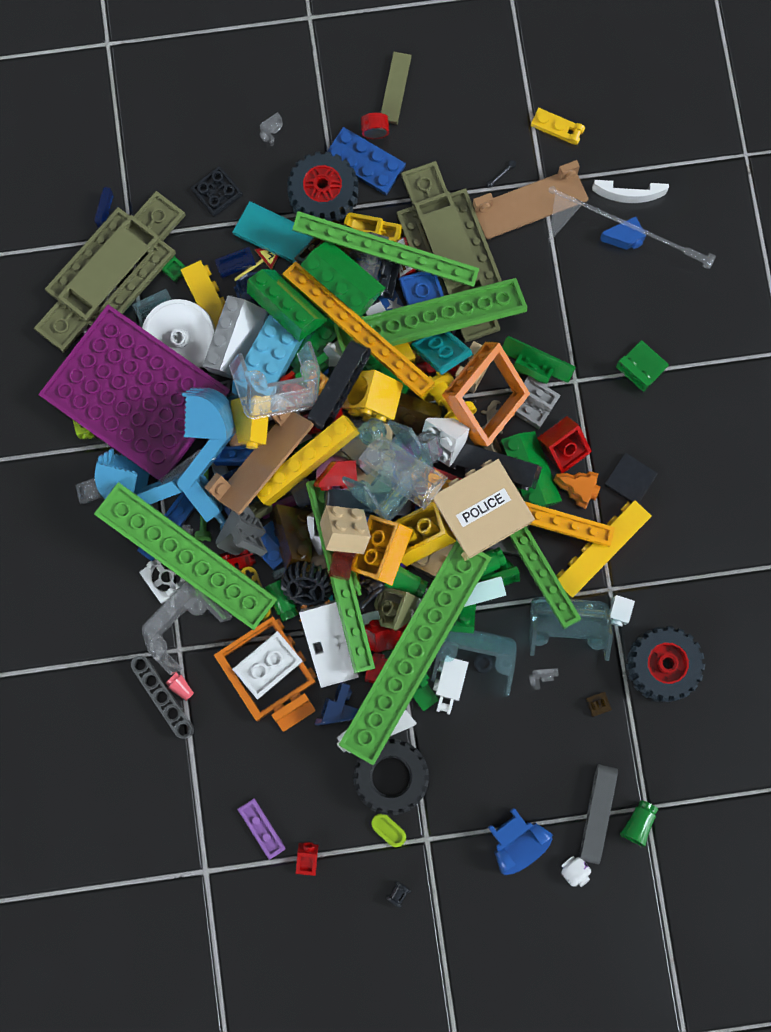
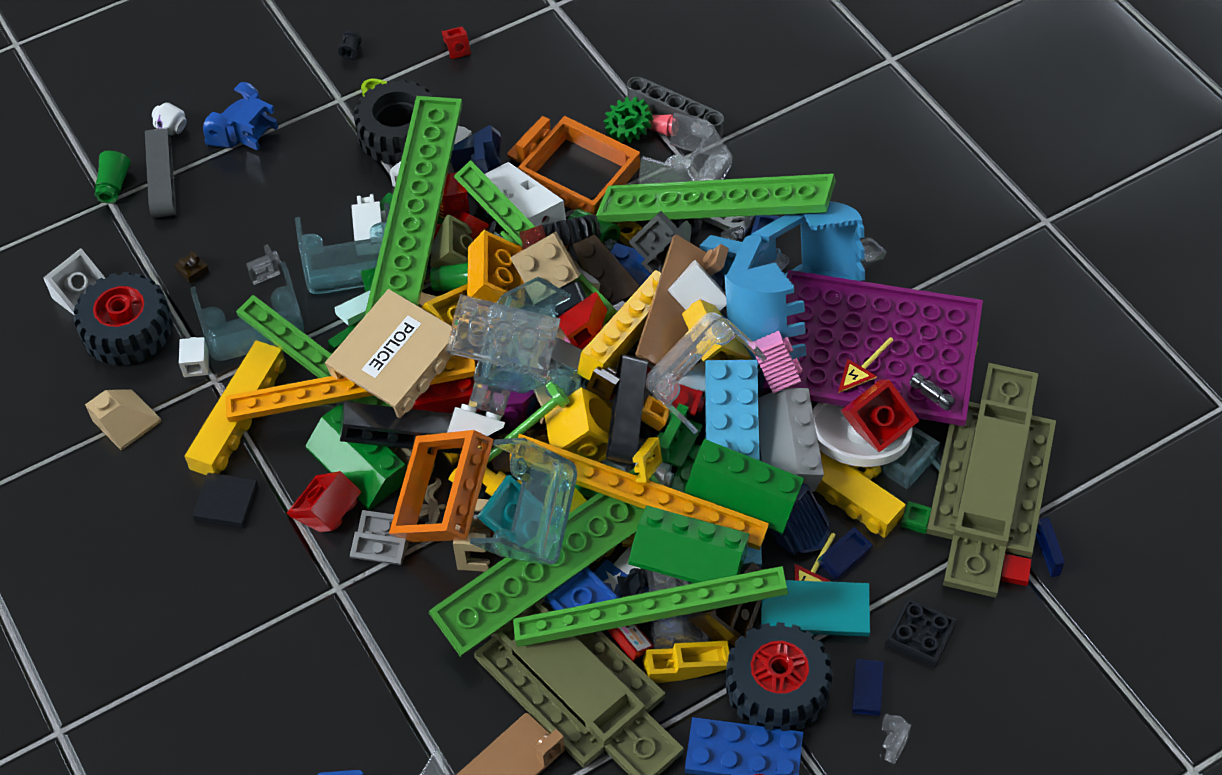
camera: 160 degrees right, 25 degrees down
(118, 331) = (932, 391): none -> black axle
(132, 204) = (1016, 570): none -> red tile
(161, 369) = (855, 374): none -> piece
(165, 325) = (880, 415): none -> red slope
(211, 705) = (628, 119): none -> green gear
(217, 379) = (779, 367): none -> bright pink brick
(240, 465) = (696, 285): none -> white slope
(261, 829) = (515, 50): medium lavender tile -> none
(267, 665) = (576, 161): white tile -> none
(269, 169) = (867, 687): none -> clear blue tile
(342, 343) = (645, 461): none -> yellow tile
(345, 409) = (603, 383): none -> dark brown tile
(383, 410) = (559, 398): none -> bright green piece
(435, 330) = (541, 505): none -> clear light blue windscreen
(536, 362) = (396, 575): green bracket -> none
(579, 486) = (288, 464): orange rock -> none
(642, 365) = (252, 629): green bracket -> none
(684, 580) = (122, 416): none -> tan slope
(691, 719) = (71, 279): none -> white slope

